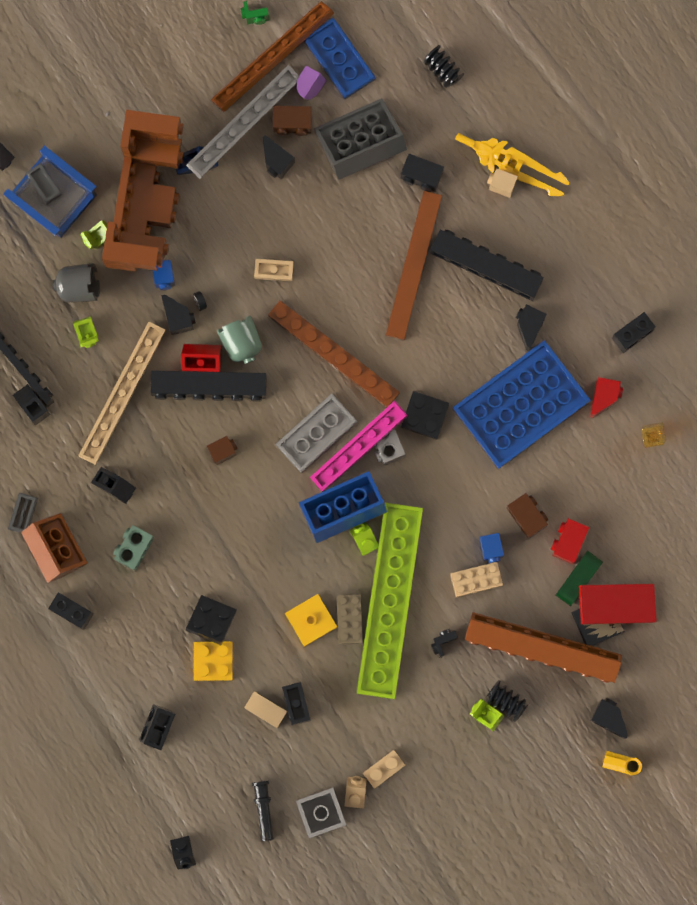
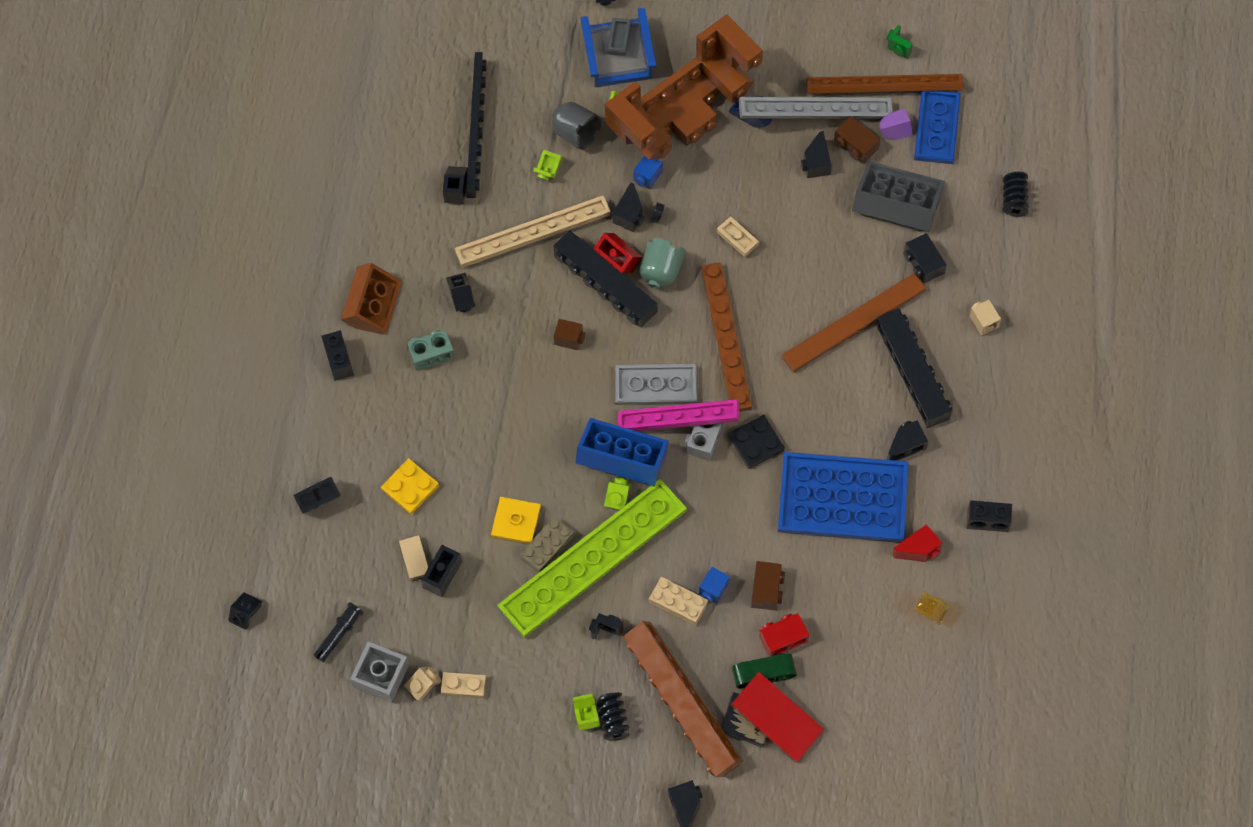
camera: 40 degrees right, 15 degrees down
(28, 521) = (382, 255): dark grey tile -> none
(211, 620) = (437, 452): black plate -> none
(492, 154) = (998, 289): yellow sword -> none

